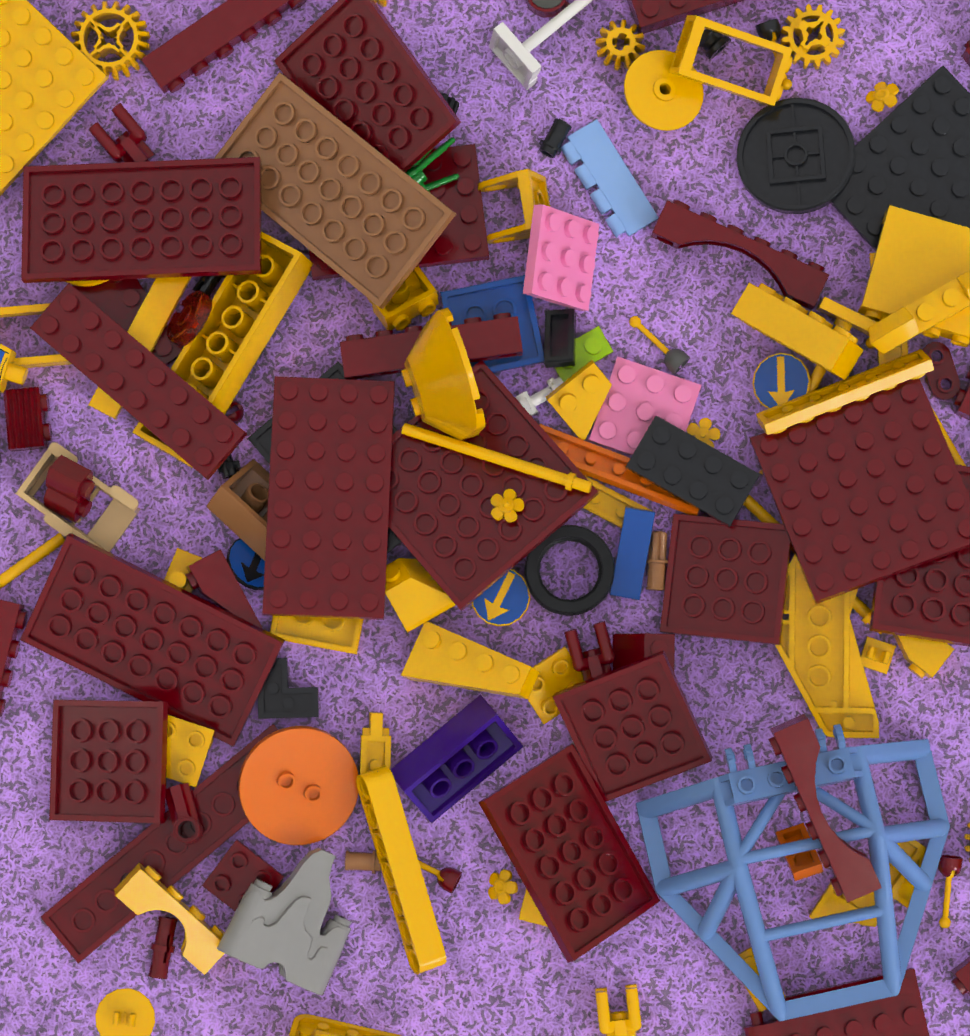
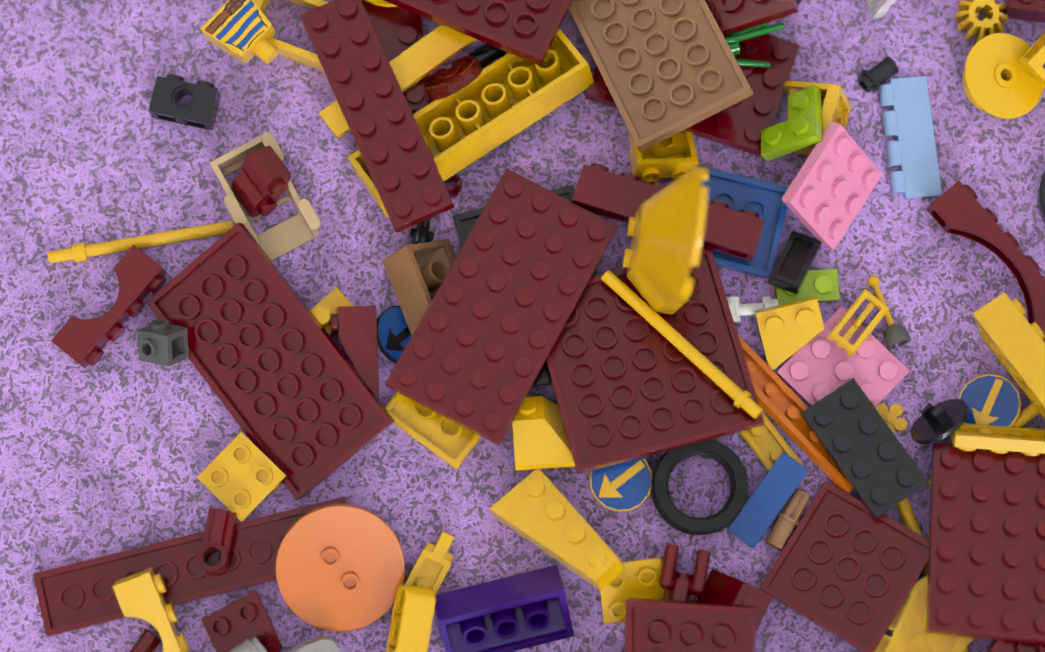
camera: 25 degrees right, 5 degrees down
(26, 419) = (254, 100): dark red brick -> none
(53, 668) = (163, 343): none -> dark grey brick
(108, 761) = (171, 456): dark red plate -> none
(283, 702) = (362, 479): black plate -> none
(506, 506) = (669, 394): yellow plant -> none
(510, 224) = (800, 129): none -> lime plate
(633, 389) = (842, 342): none -> yellow tile
(745, 417) = (939, 421): none -> black piece

